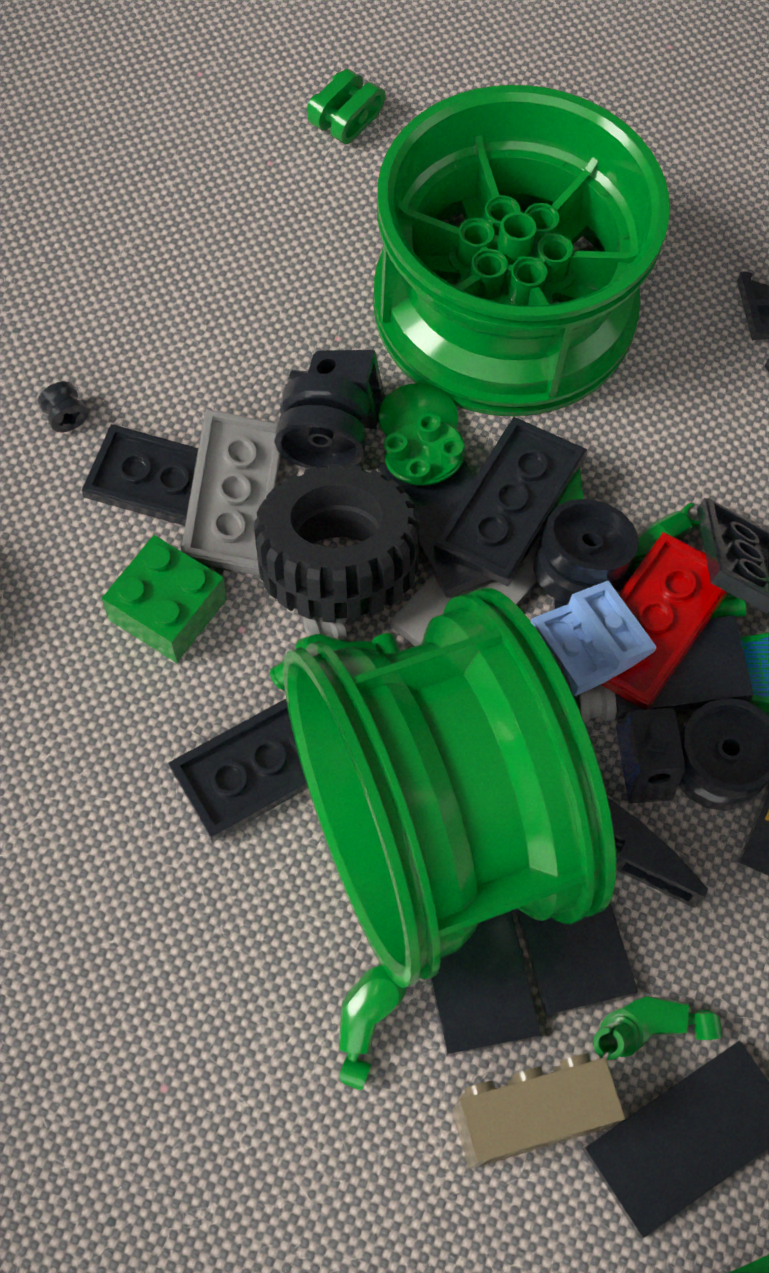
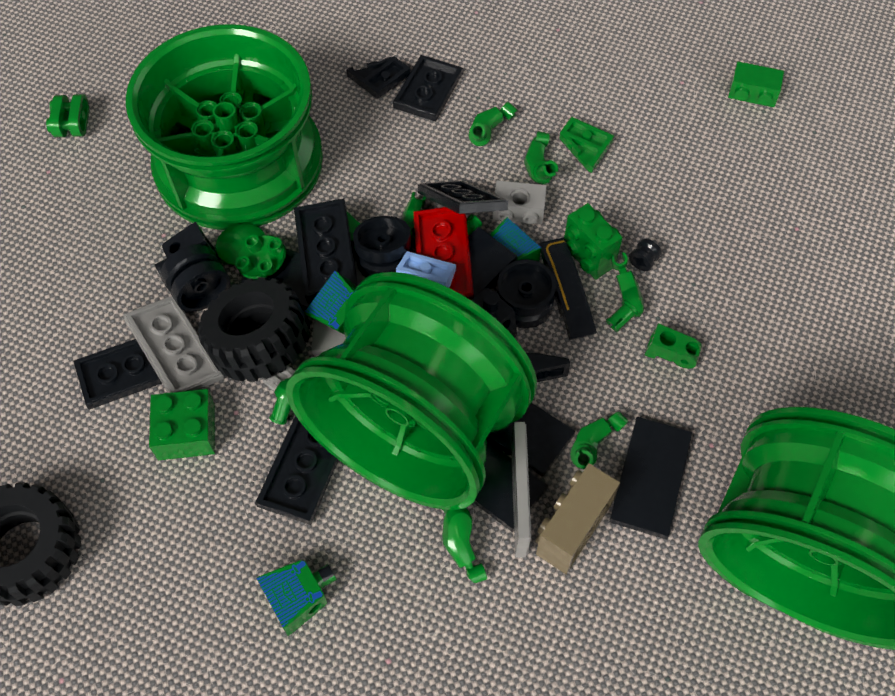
camera: 35 degrees left, 5 degrees down
(62, 406) = (37, 370): black wheel -> none
(123, 914) = (296, 592): none -> torso
(458, 575) = (330, 302): none -> torso
(491, 1015) = (520, 484): none -> light grey tile

